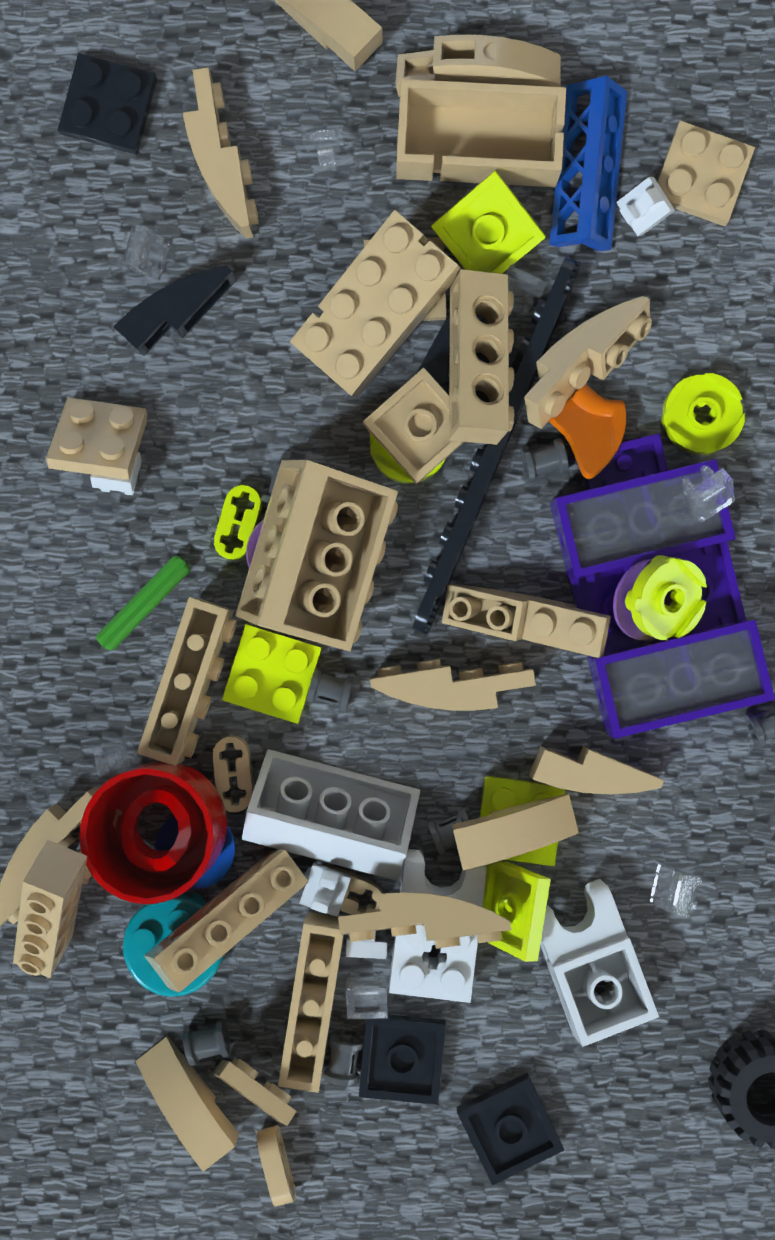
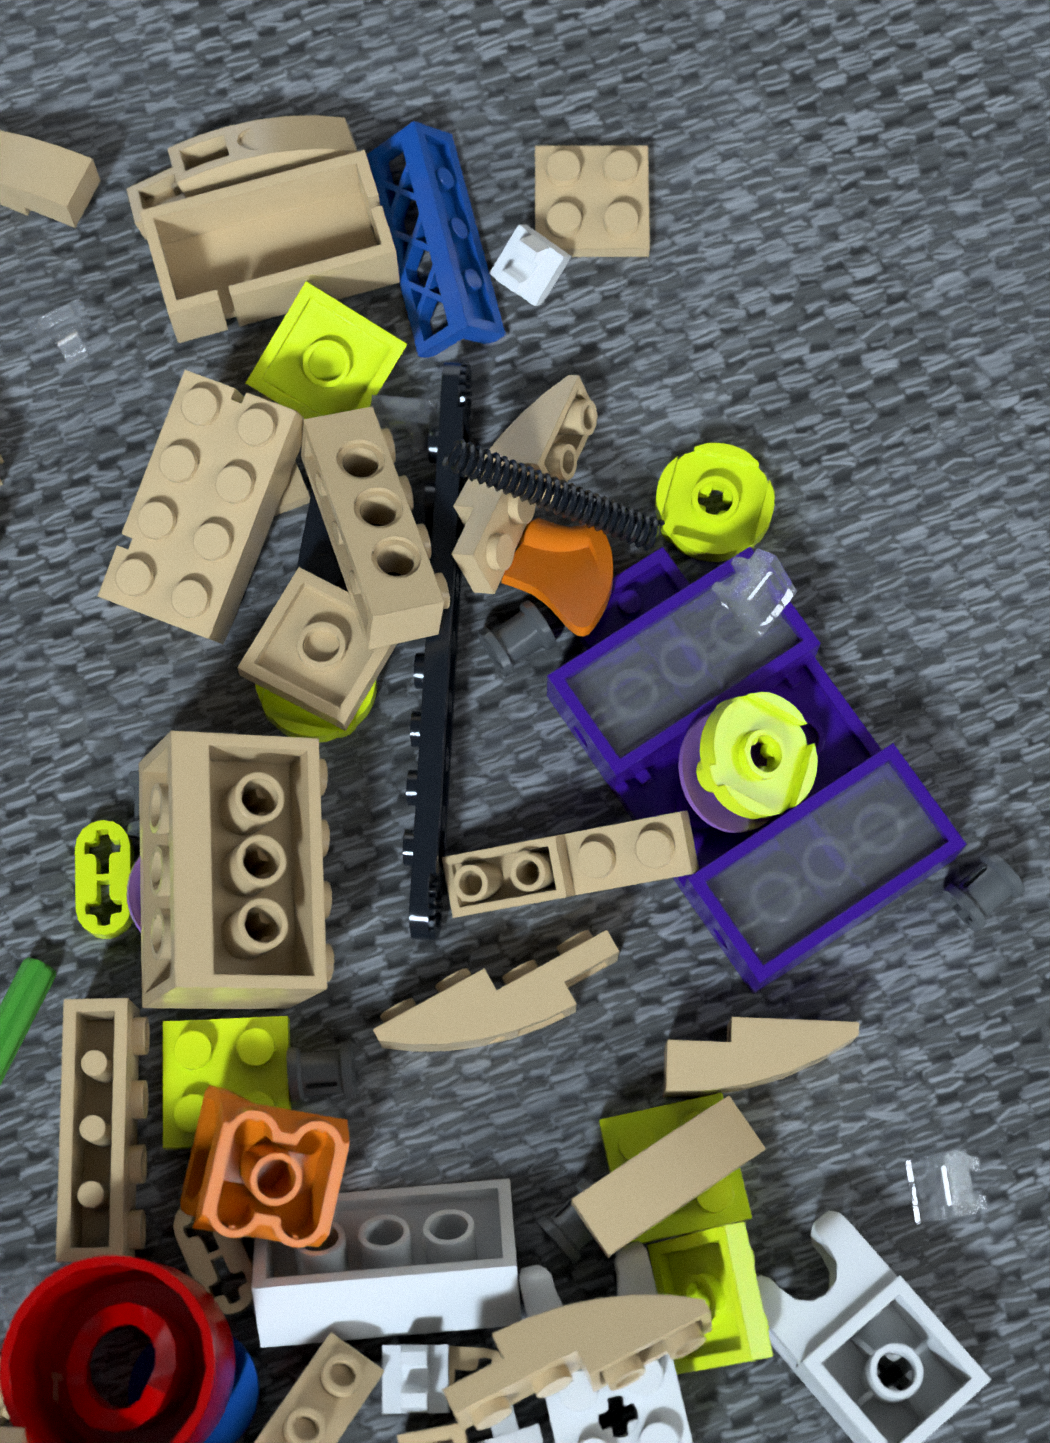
camera: 15 degrees left, 15 degrees down
(275, 743) = (264, 1170): none -> orange piece
(610, 374) = (475, 467): none -> black piece

